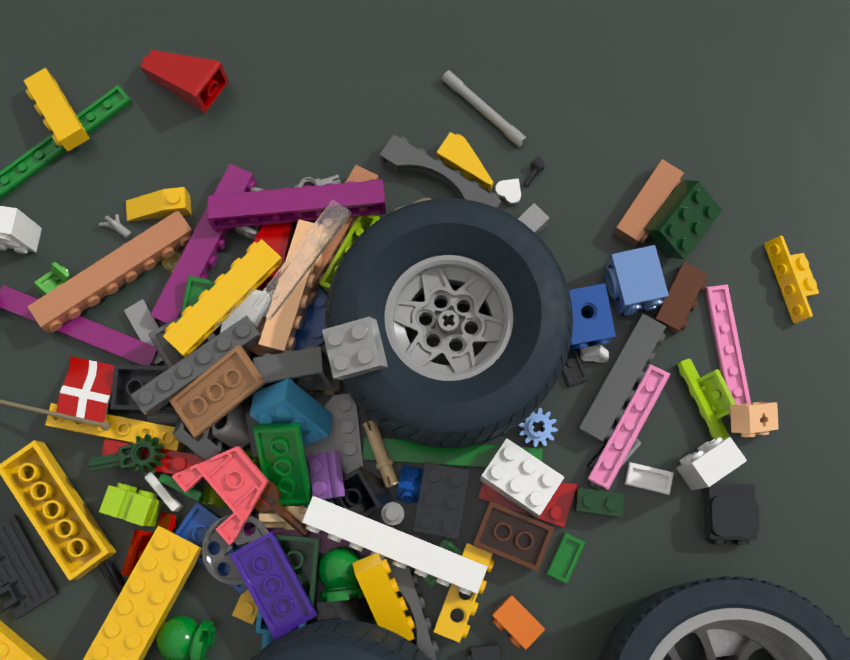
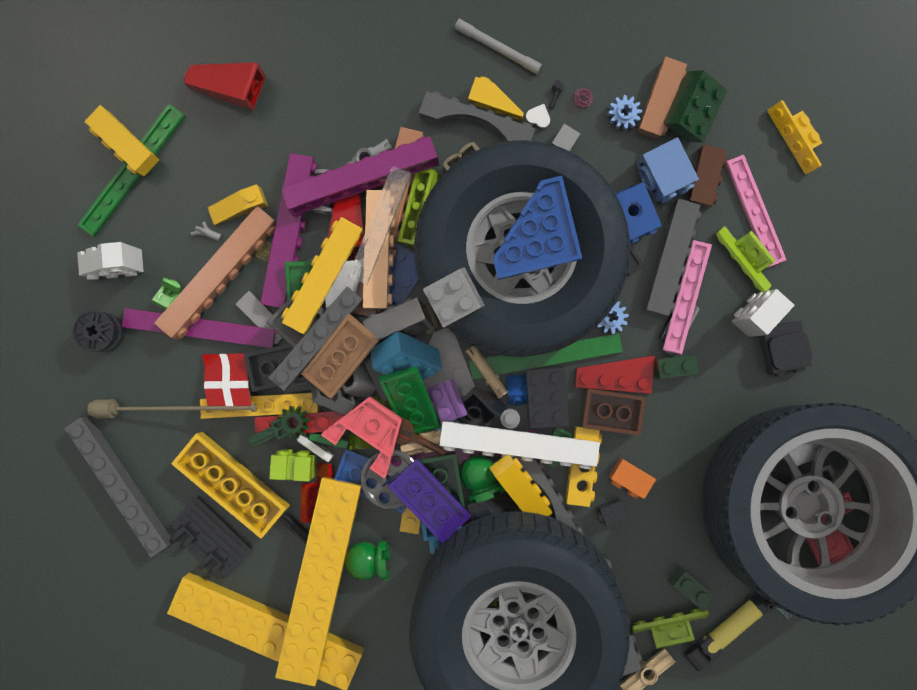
camera: 20 degrees left, 10 degrees up
(470, 306) = (542, 234): none -> blue plate
(521, 478) = (609, 363): white brick -> none
(565, 558) = (658, 417): green tile -> none
(566, 177) = (586, 92): none -> clear pink plate
(594, 353) = (645, 242): white tile -> none
(613, 210) = (629, 108): none -> light blue gear
(648, 478) = (711, 335): white tile -> none
(754, 418) = (789, 265): light nougat brick -> none

